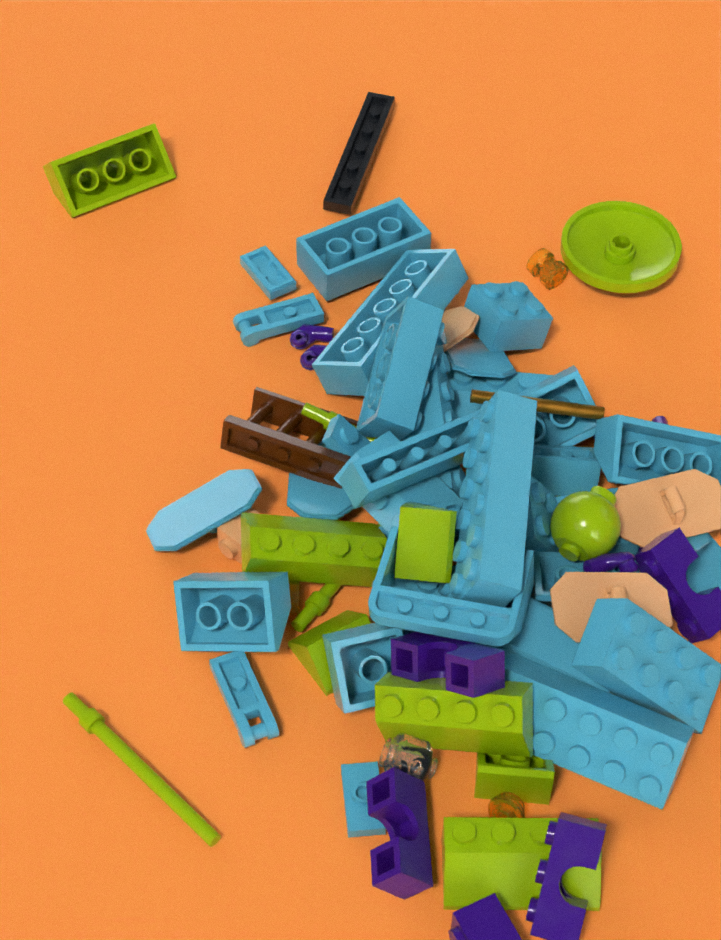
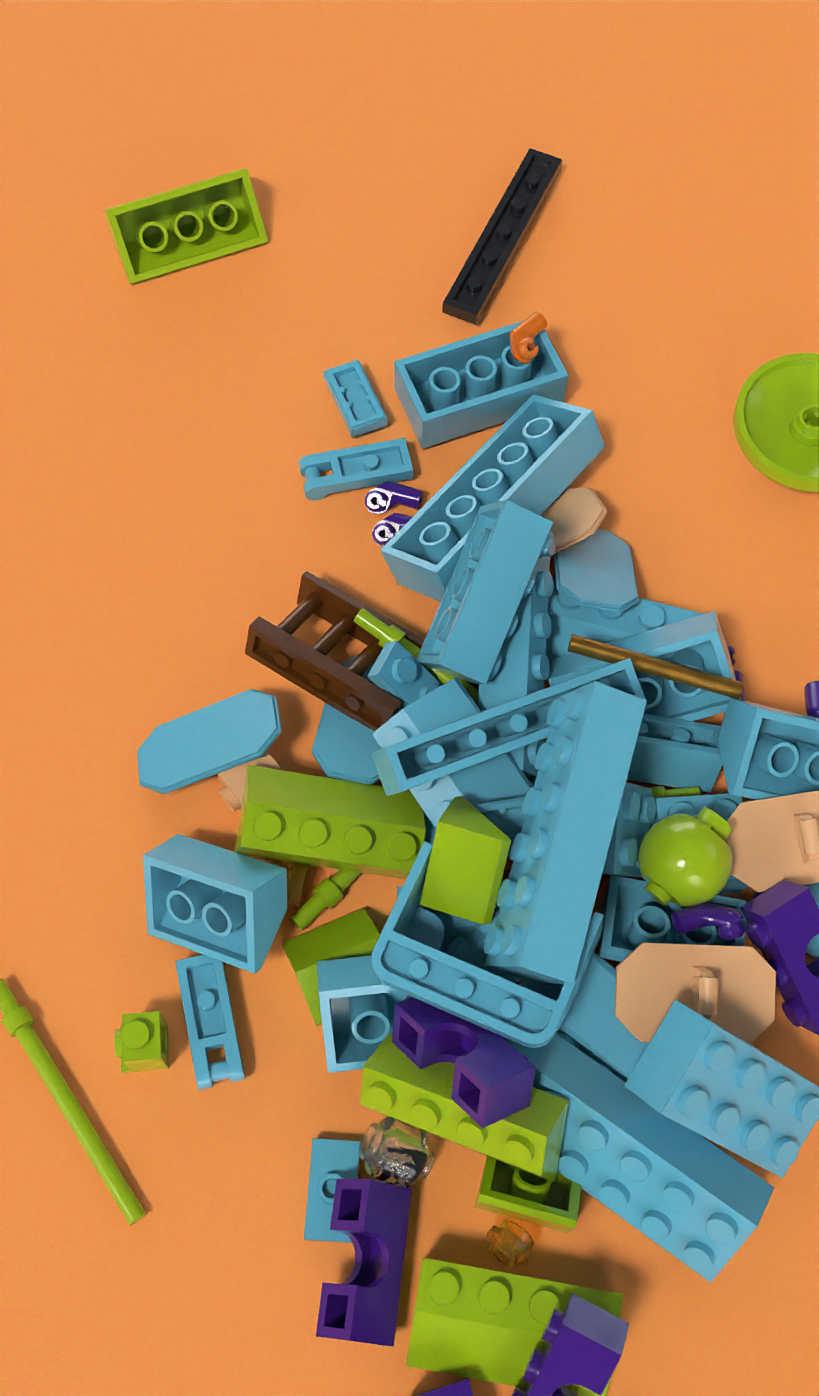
camera: 10 degrees right, 15 degrees up
(194, 717) = (142, 1042): none -> lime brick
(391, 210) = (523, 335): none -> orange arm
(508, 316) = (646, 510): medium azure brick -> none
(550, 271) = (711, 440): clear yellow wheel -> none

